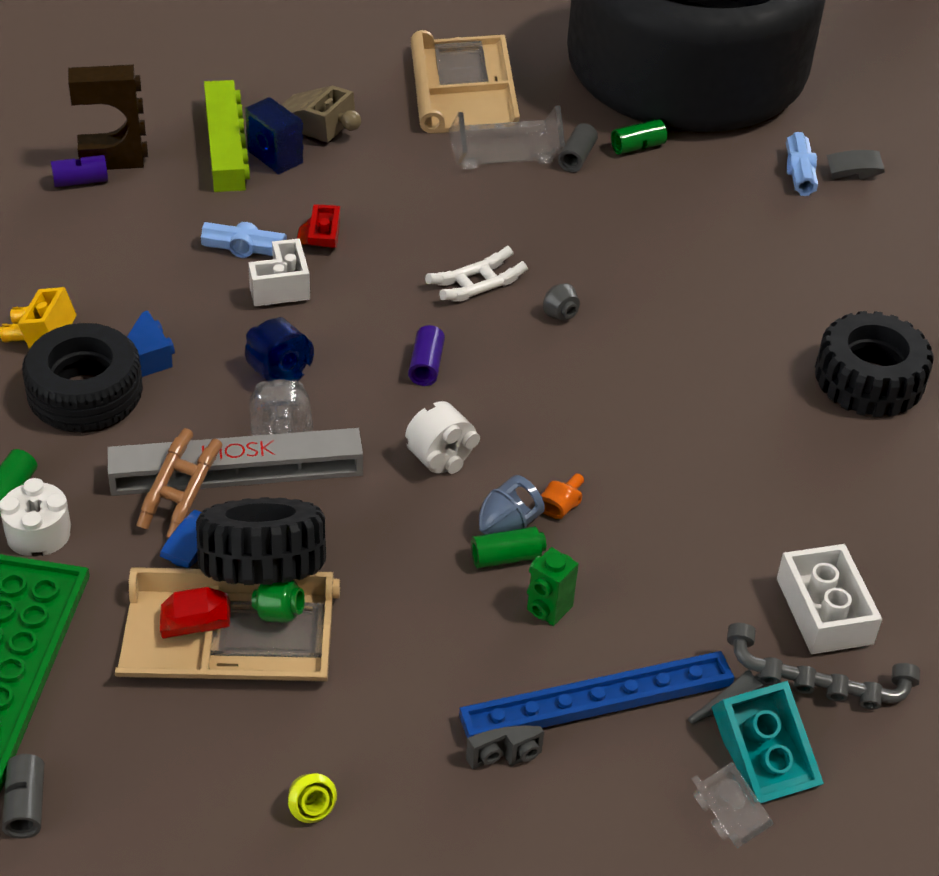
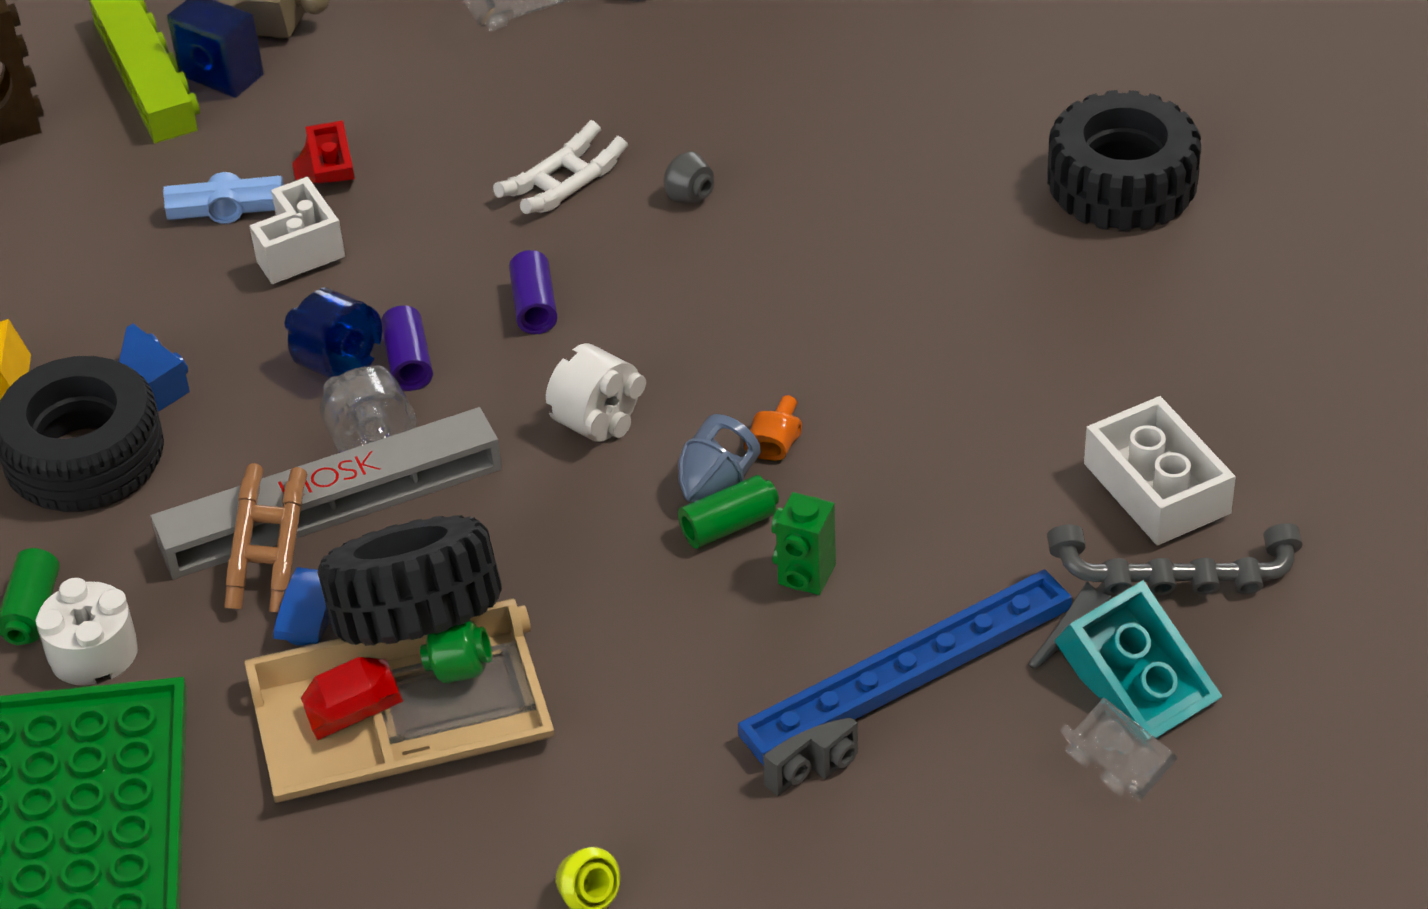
camera: 10 degrees left, 0 degrees up
(326, 373) = (407, 347): none -> dark purple pin

